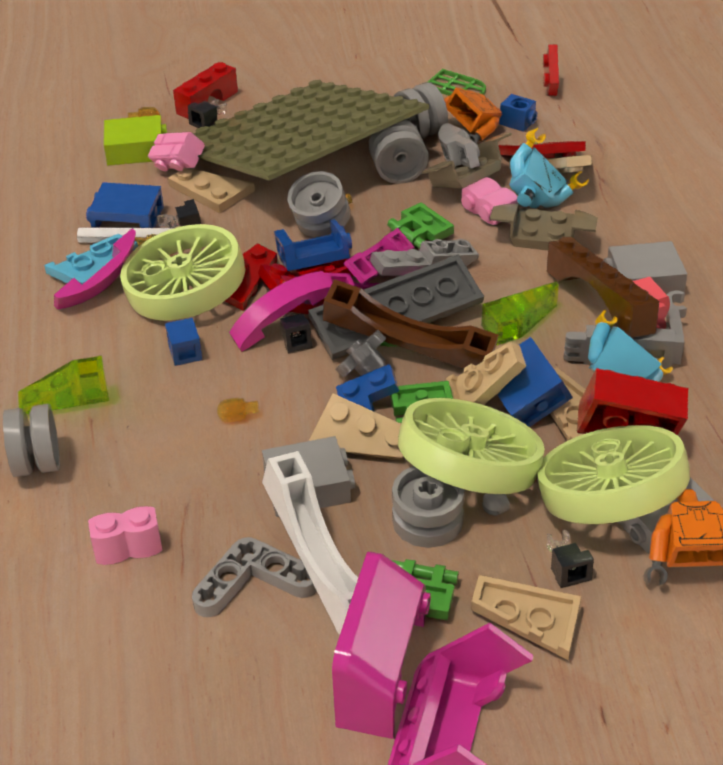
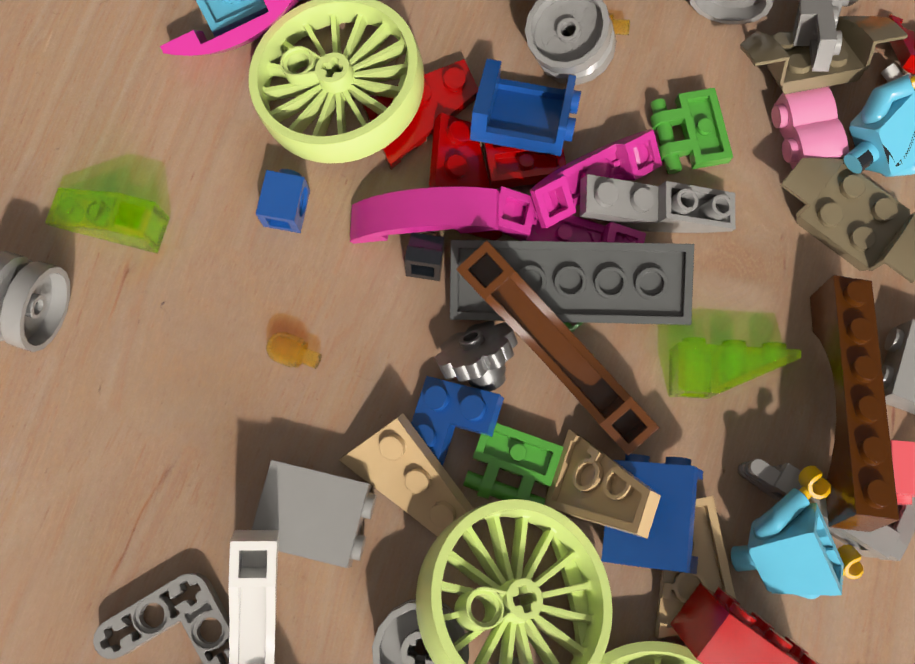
camera: 25 degrees right, 35 degrees up
(125, 535) = (63, 500): bright pink brick -> none

